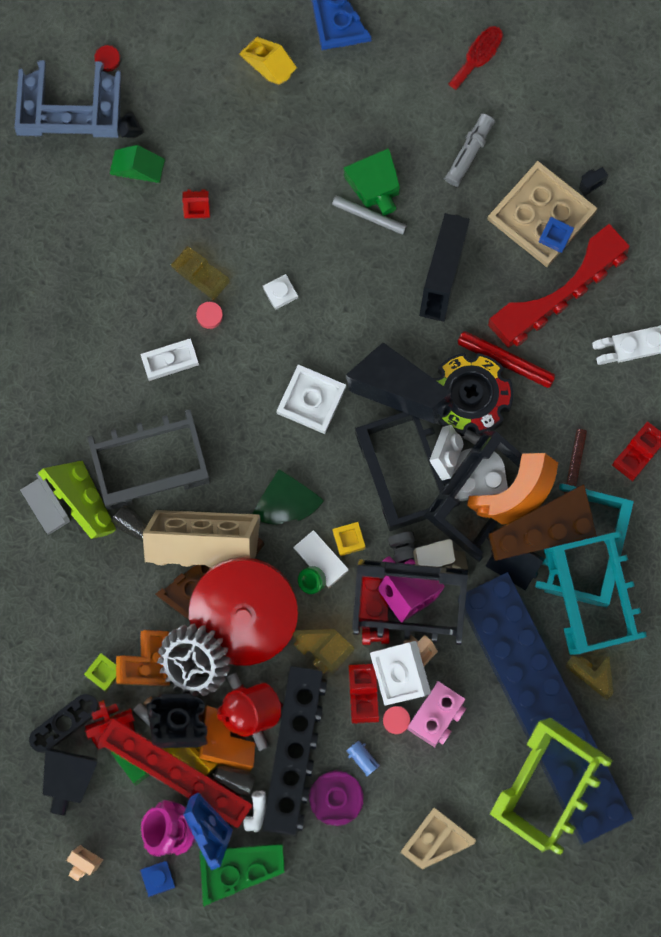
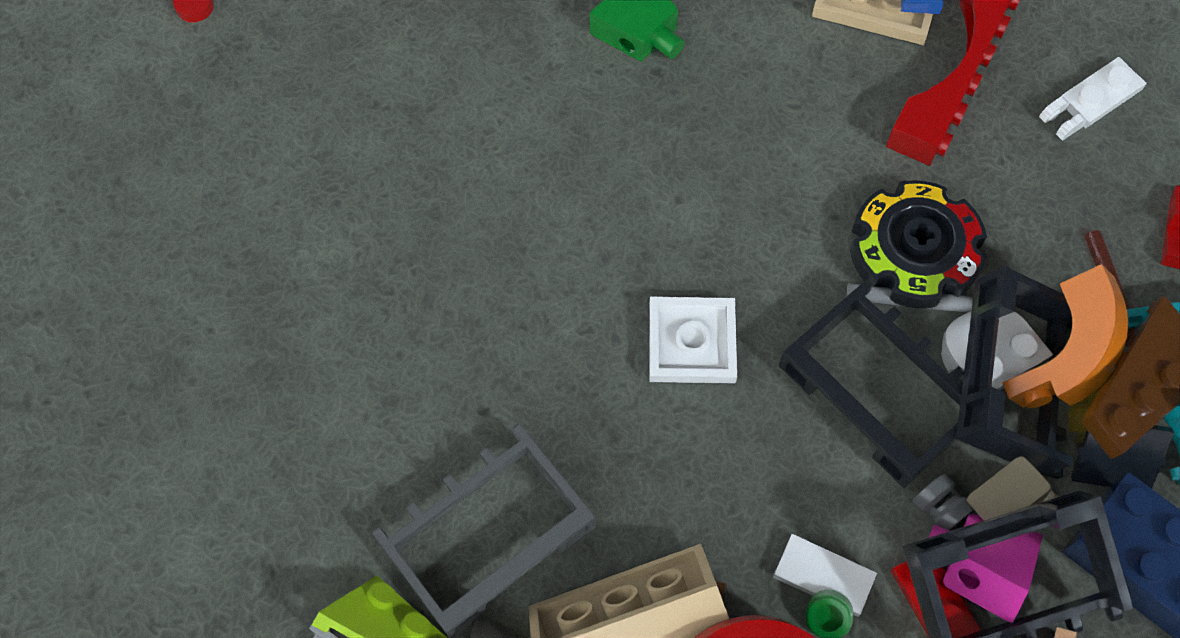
camera: 25 degrees left, 10 degrees down
(35, 118) = (114, 109): sand blue wedge -> none
(129, 126) = (260, 74): black tile -> none
(137, 163) = (289, 117): green slope -> none
(169, 359) = (452, 366): white plate -> none
(196, 204) = (399, 137): red tile -> none
(200, 273) = (438, 227): clear yellow slope -> none
(209, 315) = (484, 281): coral tile -> none
(280, 292) = (574, 210): white plate -> none
(286, 501) = (728, 505): dark green brick -> none
(349, 539) = (853, 524): yellow plate -> none
(369, 215) = (649, 67): light grey bar -> none
(400, 385) = (821, 264): black slope -> none
(444, 267) = (793, 92): black slope -> none
(446, 452) = (937, 331): white plate -> none
(507, 359) = (953, 179): red axle -> none

